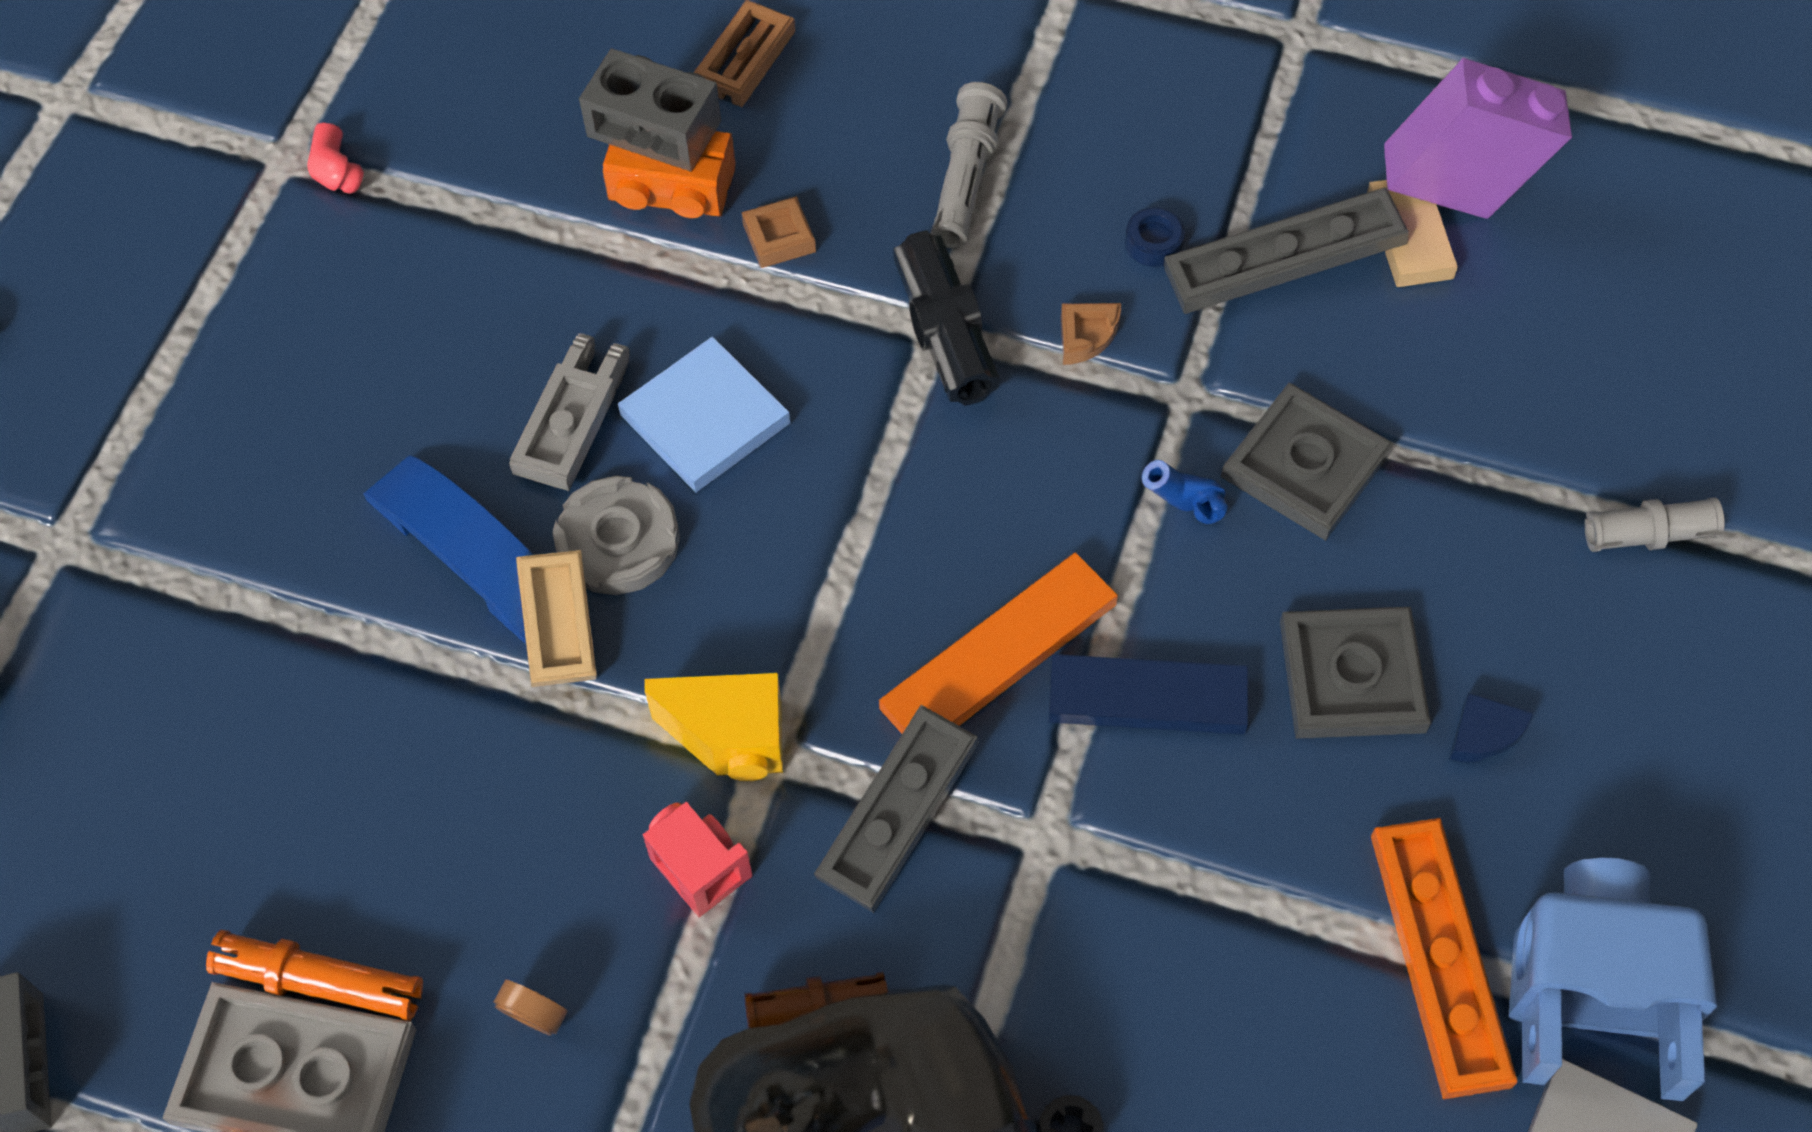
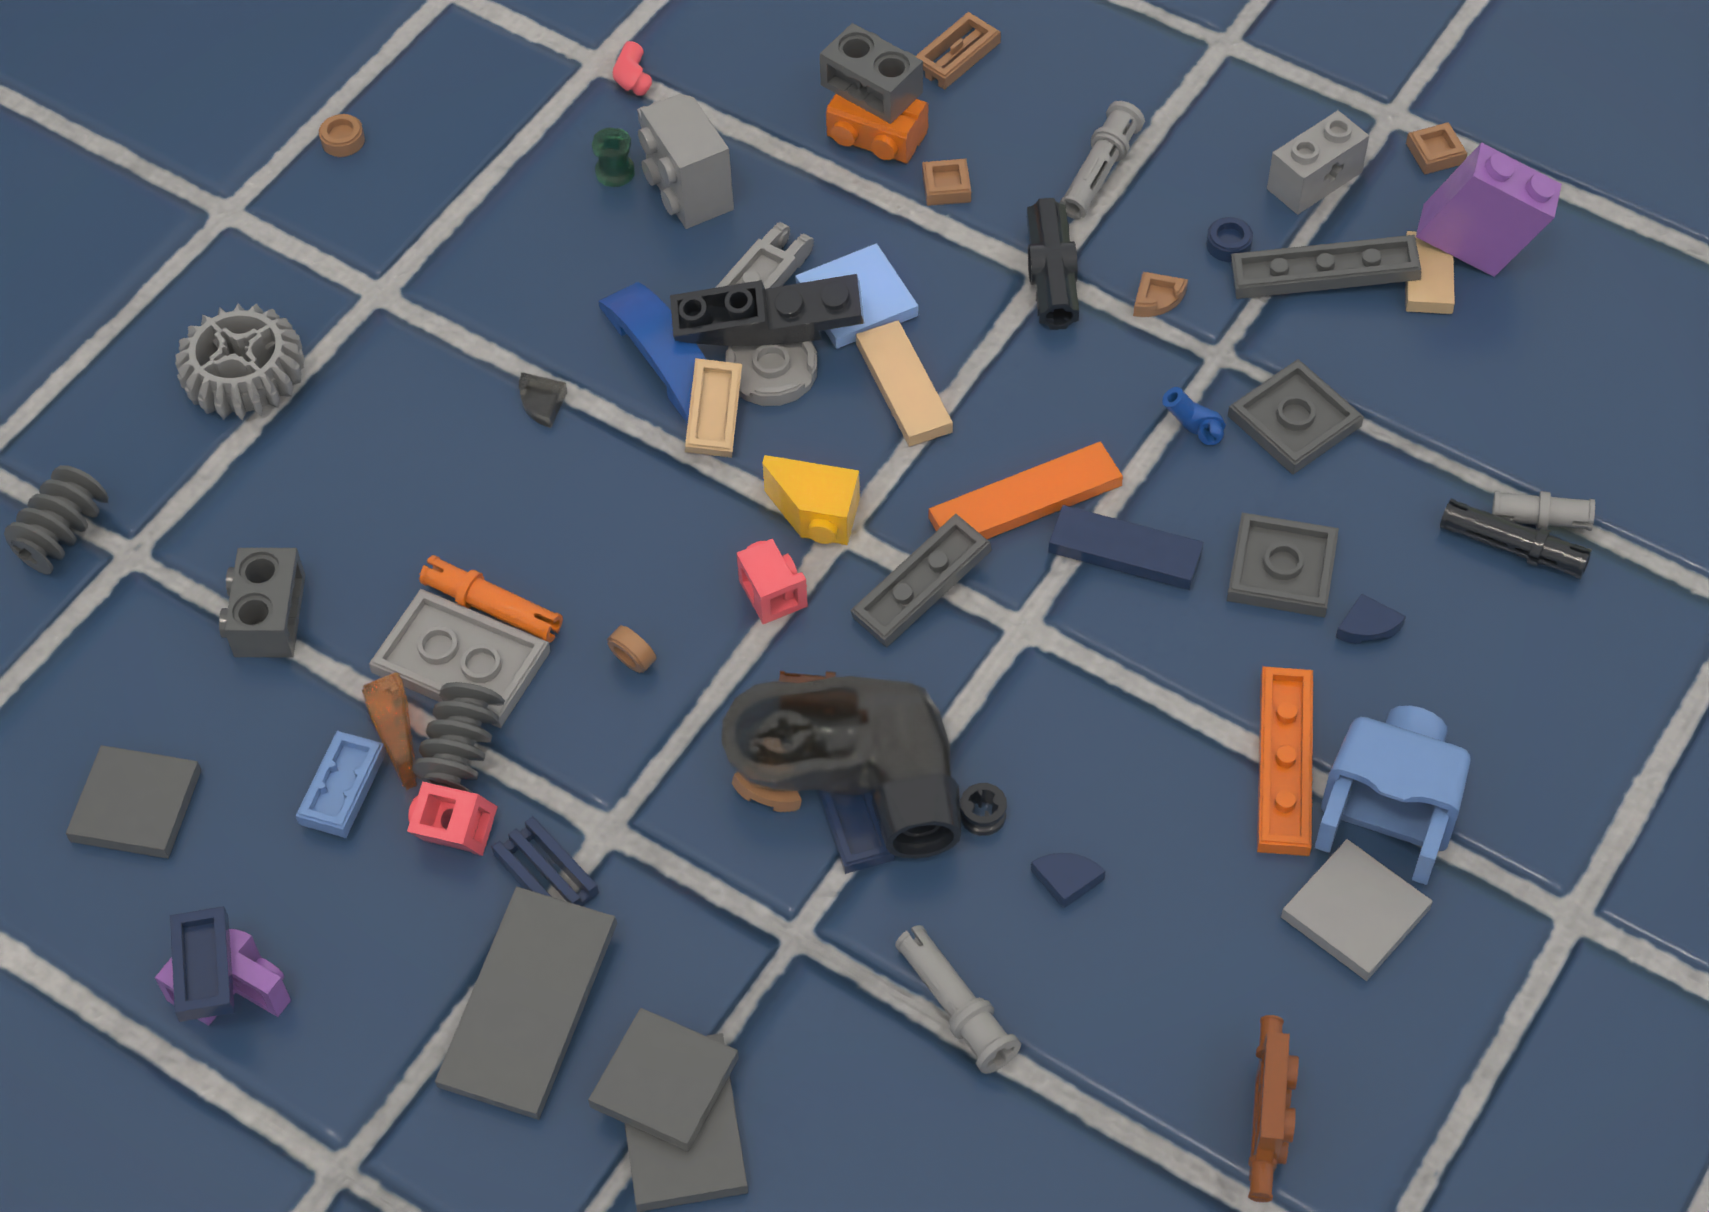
camera: 15 degrees right, 5 degrees down
(318, 651) = (541, 397): none -> clear smoke tile
(334, 281) = (613, 164): none -> clear green bush
(434, 274) = (686, 159): none -> light grey hinge
(597, 473) = (771, 316): none -> black slope
(798, 524) = (904, 383): none -> tan tile
(1236, 114) = (1317, 162): none -> light grey brick
(1368, 65) = (1436, 148): none -> medium nougat tile
(1648, 573) = (1523, 541): none -> black pin

